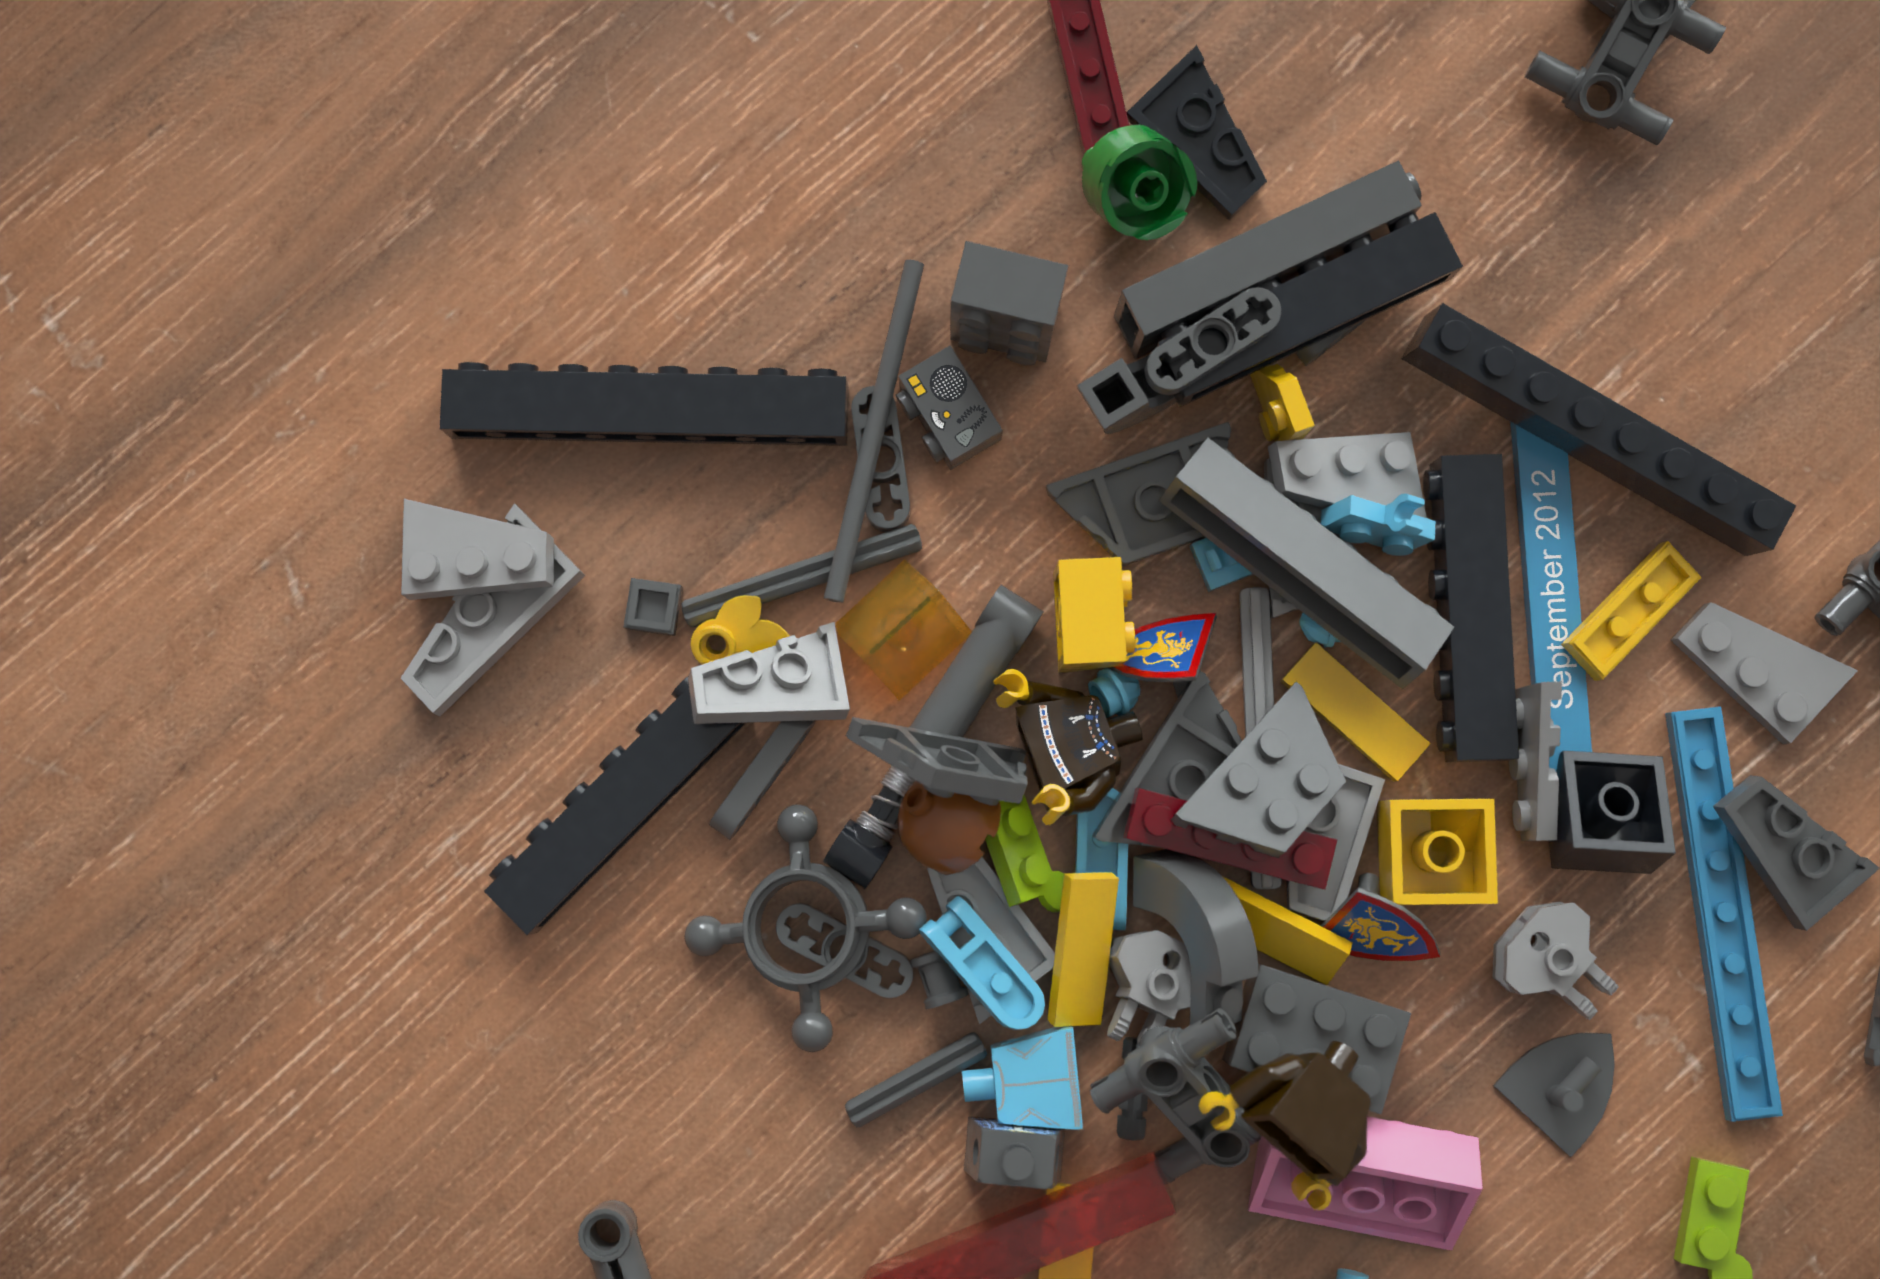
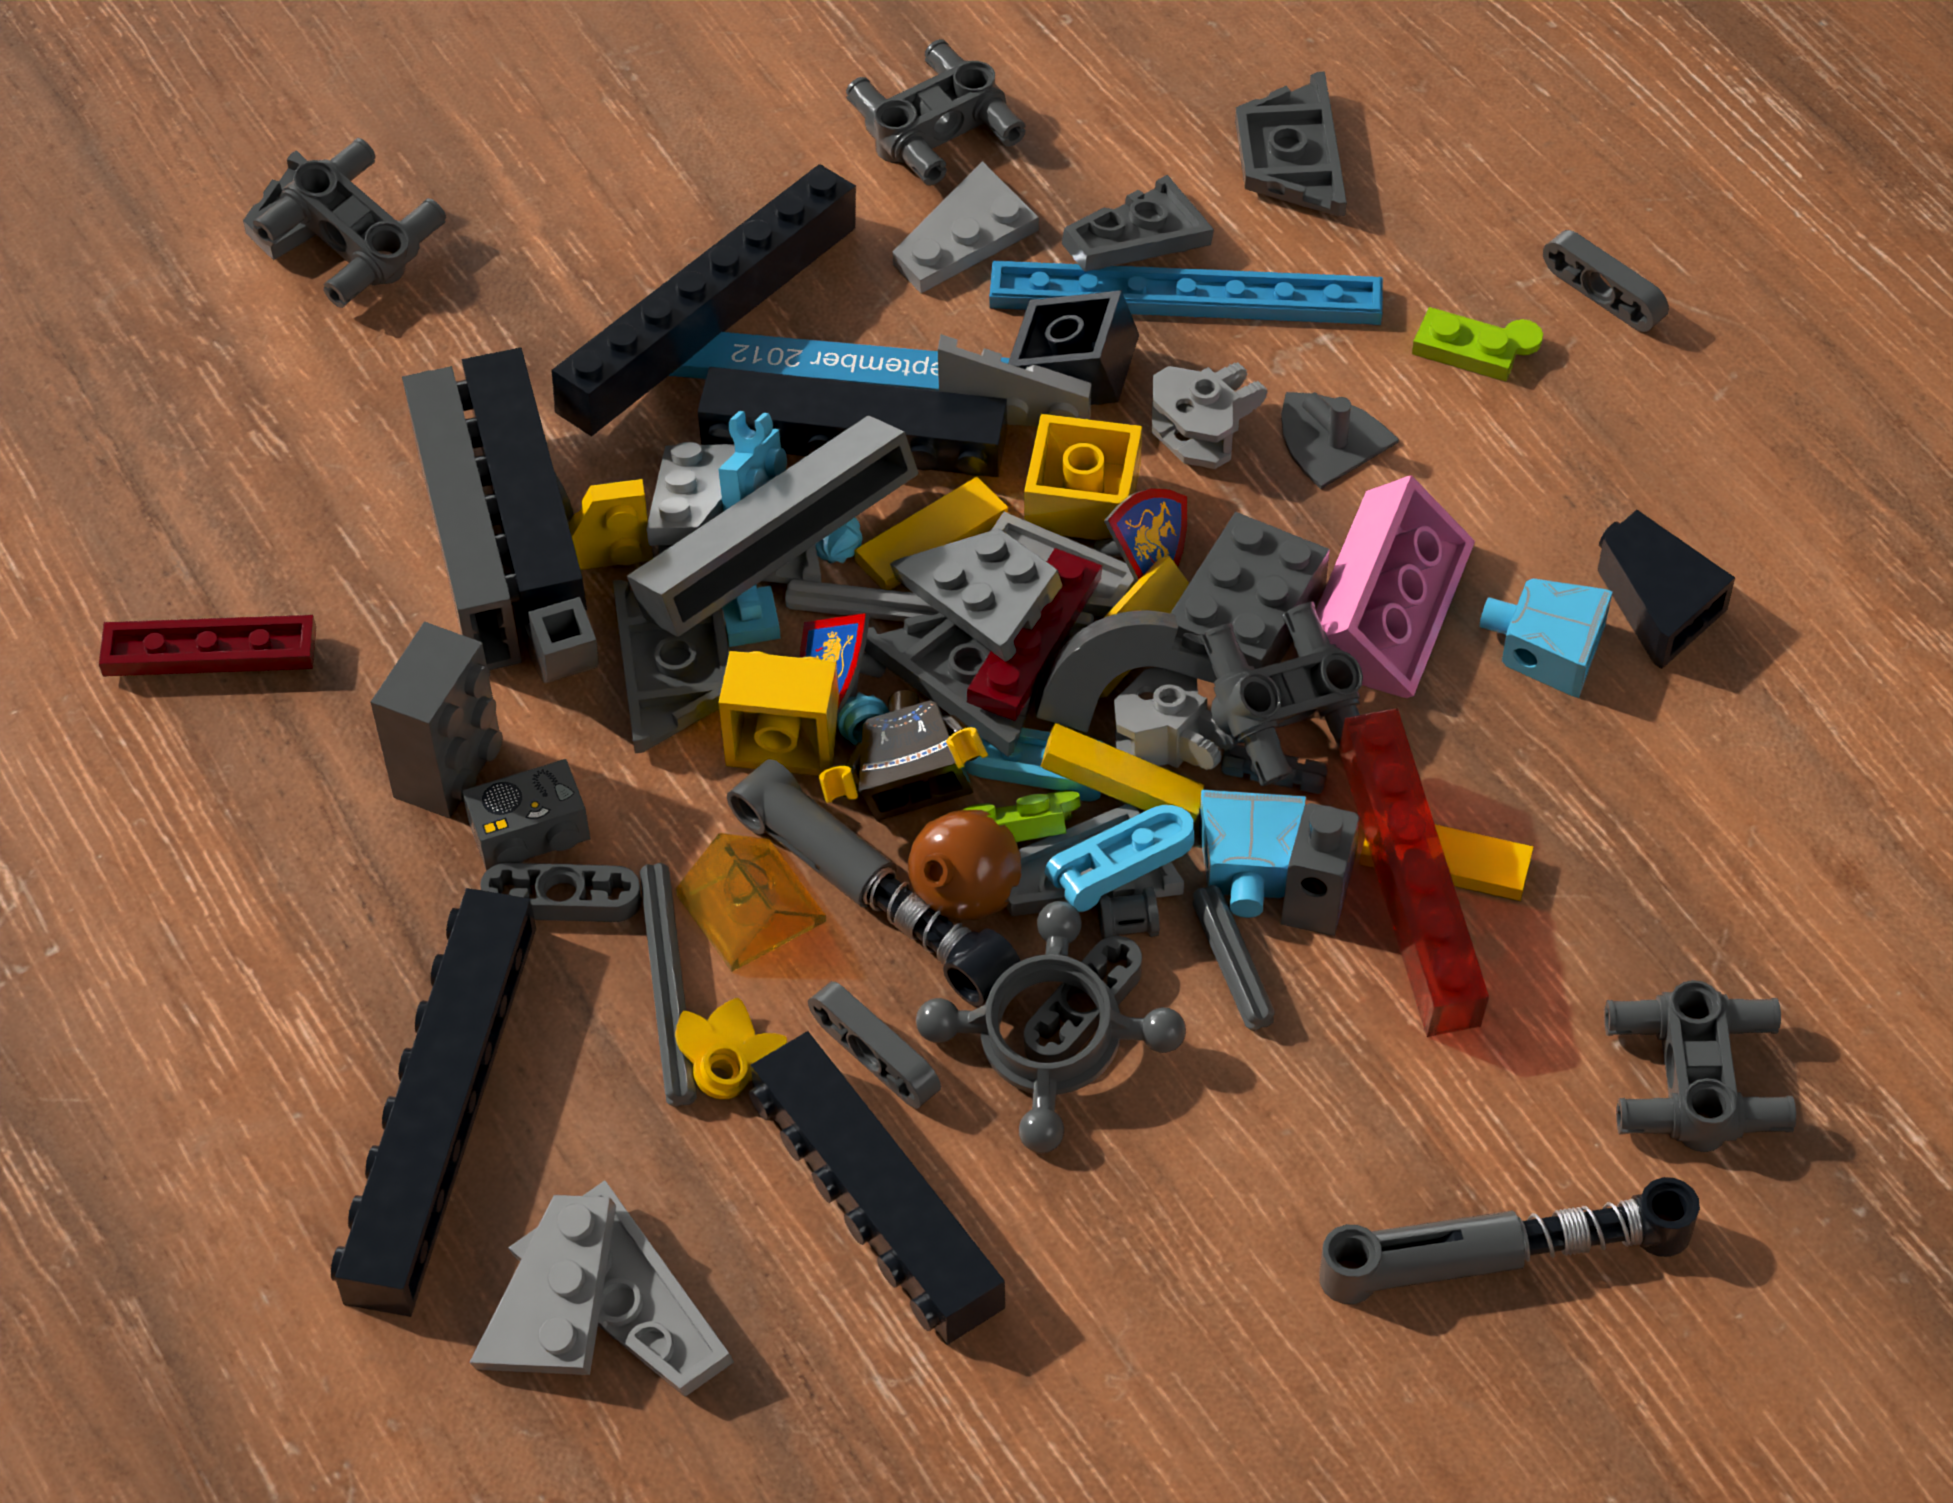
camera: 80 degrees left, 30 degrees down
(653, 607) = (663, 1132): dark grey tile -> none
(780, 683) = (781, 997): wing -> none
(874, 431) = (533, 880): dark grey piece -> none
(945, 761) = (895, 845): dark grey wing -> none
(1138, 182) = (344, 605): green brick -> none
(1194, 117) = (306, 570): black wing -> none
(1236, 308) = (536, 522): dark grey beam -> none
(1306, 1113) = (1317, 578): dark brown torso -> none
(1631, 611) = (885, 308): yellow tile -> none

